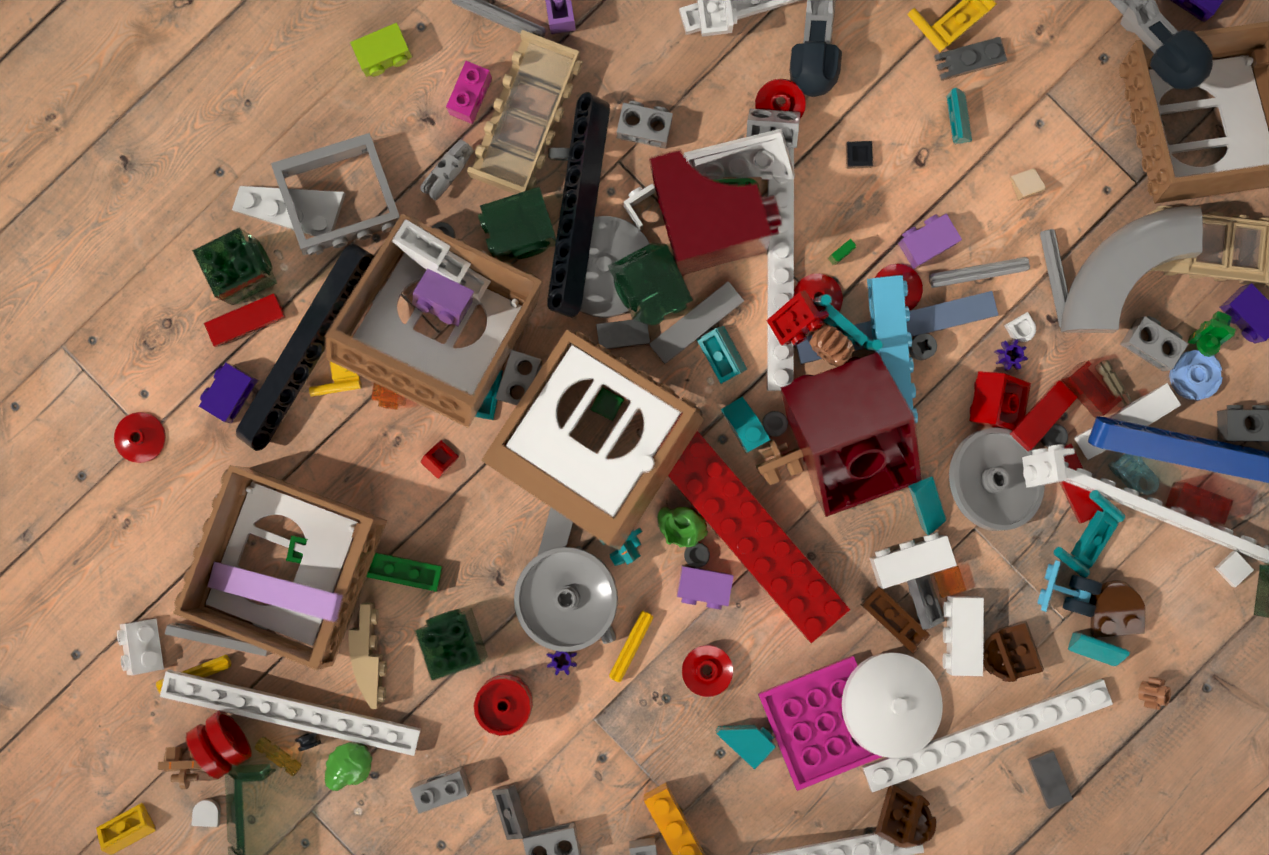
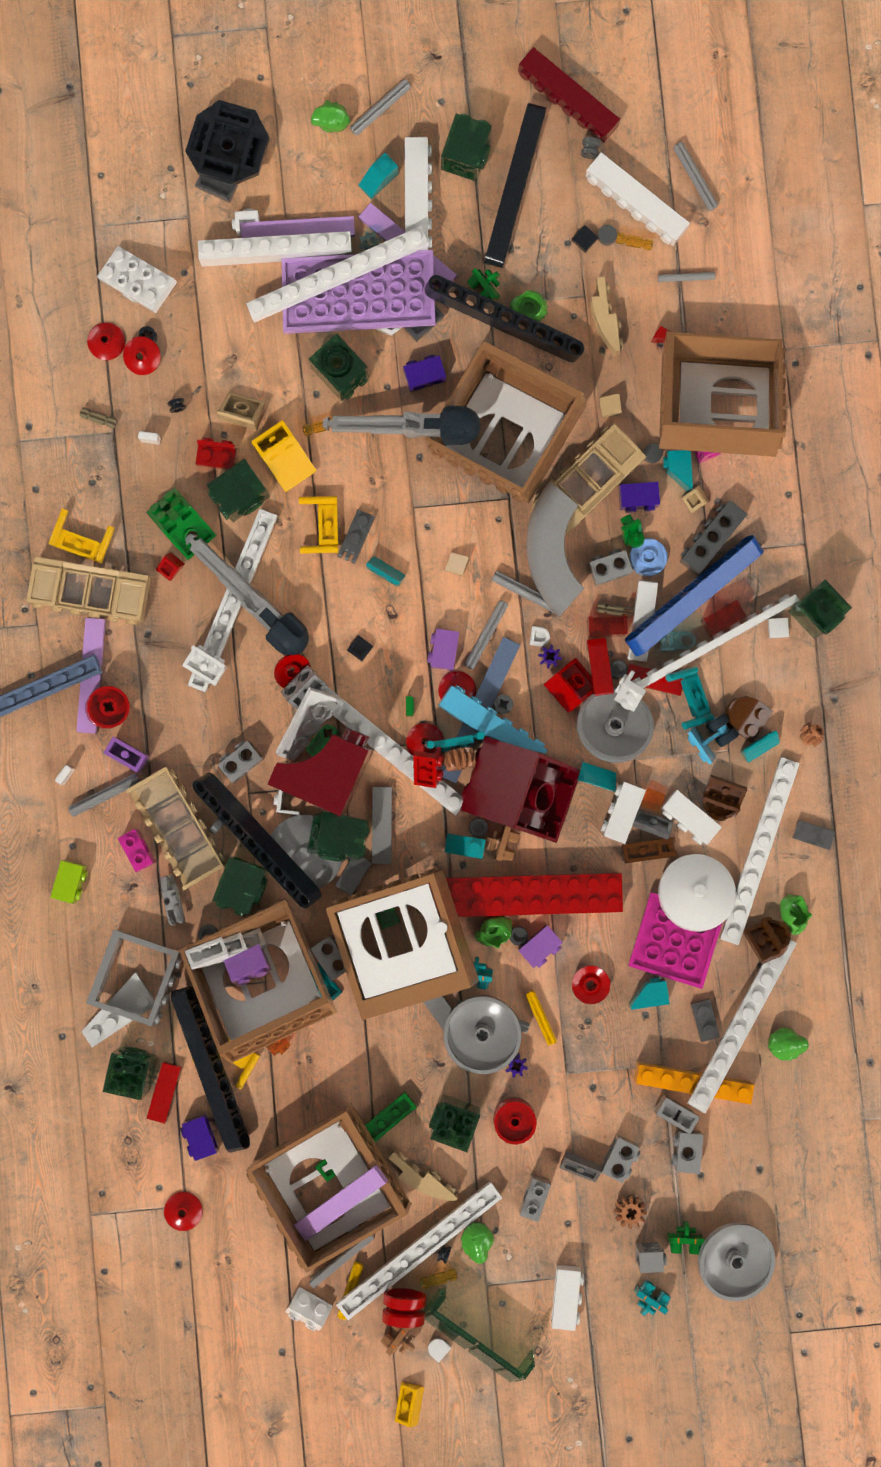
camera: 50 degrees left, 0 degrees up
(439, 459) = (339, 1042): red slope -> none
(722, 354) = (412, 825): teal slope -> none
(765, 820) = (705, 1020): none -> flat silver plate
(954, 825) = (795, 913): none -> bright green hair

